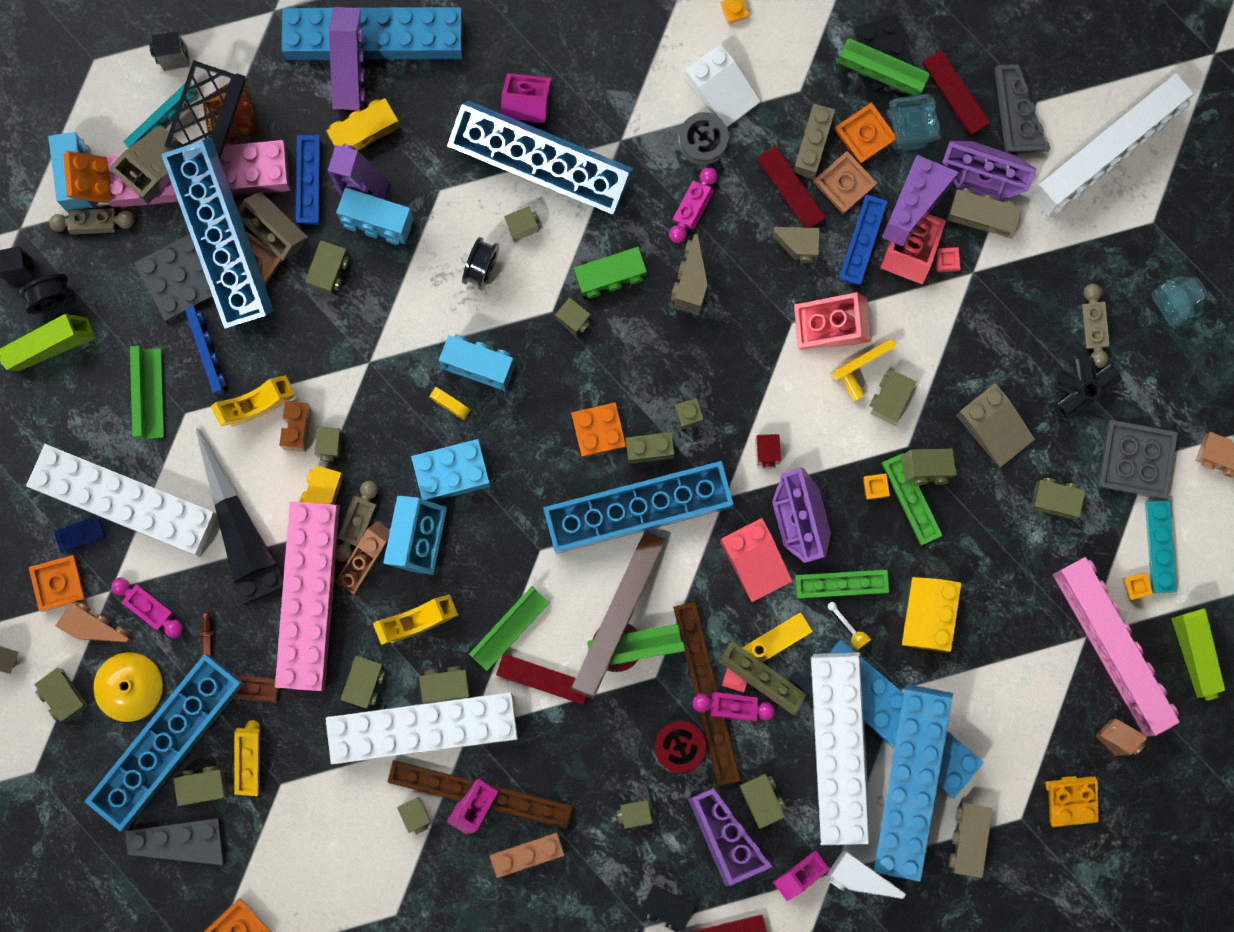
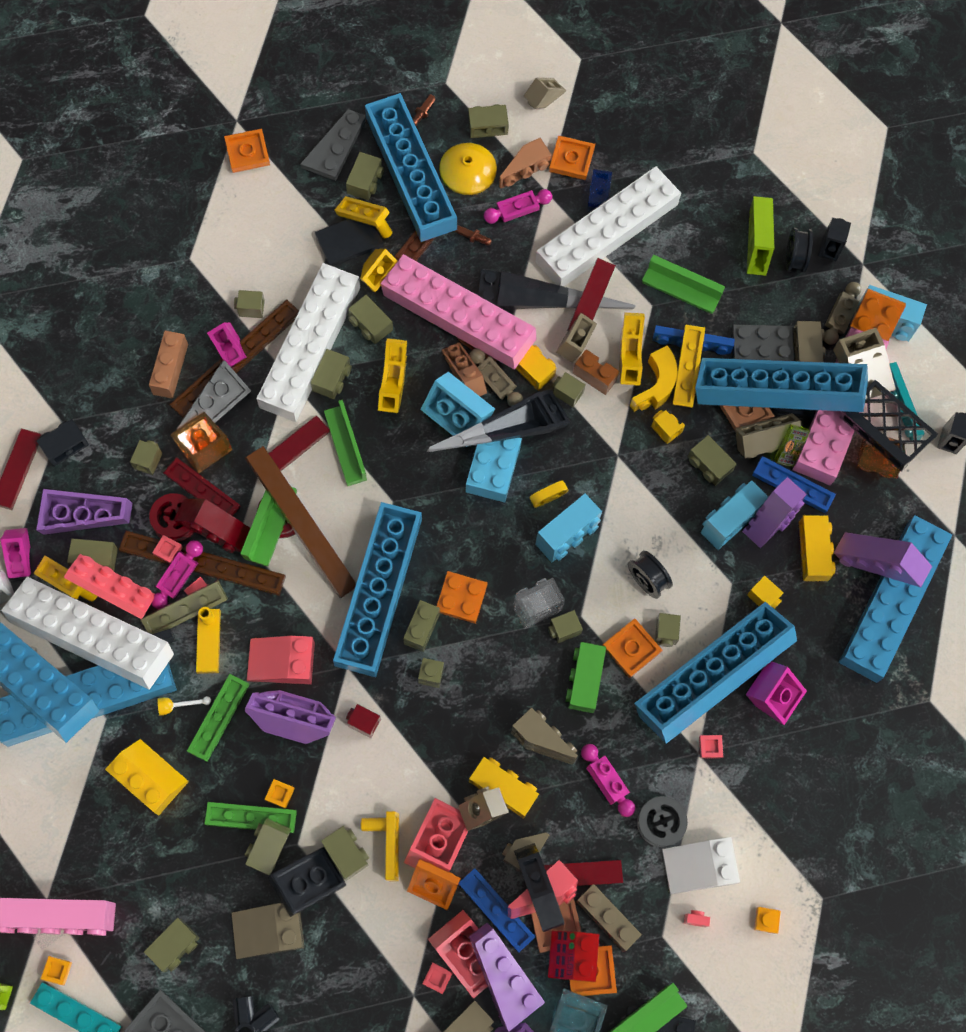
camera: 115 degrees right, 10 degrees down
(86, 774) = (422, 111): none -> copper piece
(154, 232) = (808, 342): none -> dark tan brick
(215, 473) = (594, 290): none -> dark red tile
(239, 337) = (688, 366): none -> yellow plate
(259, 356) = (665, 369): none -> yellow arch
(269, 463) = (576, 338): none -> dark tan slope
(271, 198) = (792, 445): none -> tile
(286, 762) = (347, 241): none -> black tile
(304, 706) = (377, 268): none -> yellow slope
(314, 328) = (667, 426): none -> yellow brick
(382, 461) = (530, 417): none -> black plate
(436, 152) = (765, 592): none -> yellow brick
(540, 783) = (218, 396): none -> dark grey wing
(558, 246) = (632, 648): none -> orange plate
(567, 351) = (538, 602): none -> clear brick
(589, 768) = (202, 442): none -> clear orange slope
(610, 130) = (711, 746): none -> coral plate
(635, 741) = (199, 486): none -> dark red tile
(668, 699) = (213, 523): none -> dark red wedge
(716, 730) = (167, 549): none -> coral plate
(753, 291) = (517, 795): none -> yellow brick
(770, 67) = (697, 919): none -> coral plate
(785, 296) = (482, 808): none -> dark tan brick
(785, 756) = (110, 586): none -> coral plate
(802, 811) = (54, 574): none -> yellow piece
(825, 199) = (563, 885): none -> coral slope
(828, 206) = (539, 887): none -> black slope
(864, 150) = (573, 956): none -> red slope
(875, 302) = (433, 884): none -> orange plate
(937, 413) = (307, 881): none -> black tile

